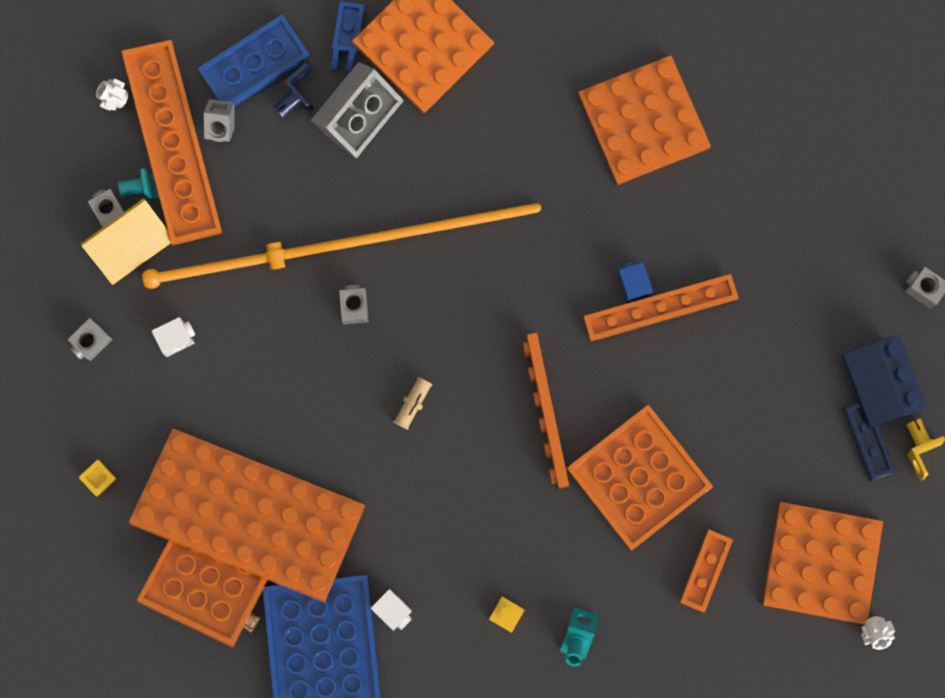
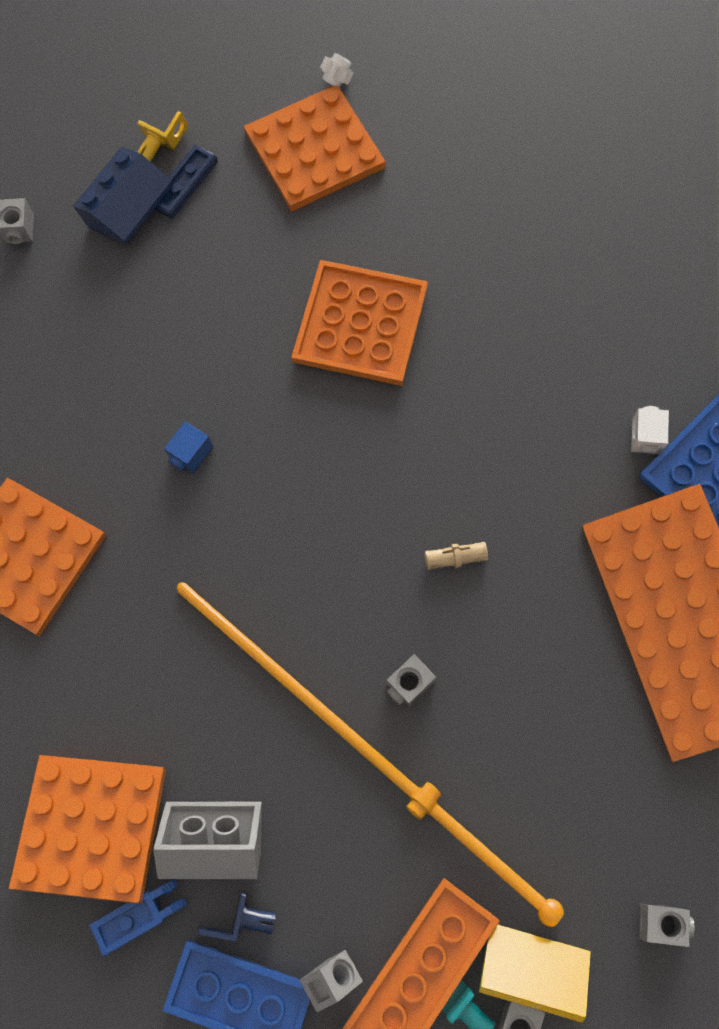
camera: 120 degrees left, 10 degrees down
(174, 336) = (587, 836): white brick -> none
(506, 614) = (566, 341): yellow plate -> none
(547, 421) = (359, 443): orange plate -> none
(578, 637) = (534, 269): teal bracket -> none
(660, 307) = (196, 411): orange plate -> none
(706, 571) = (394, 219): orange plate -> none

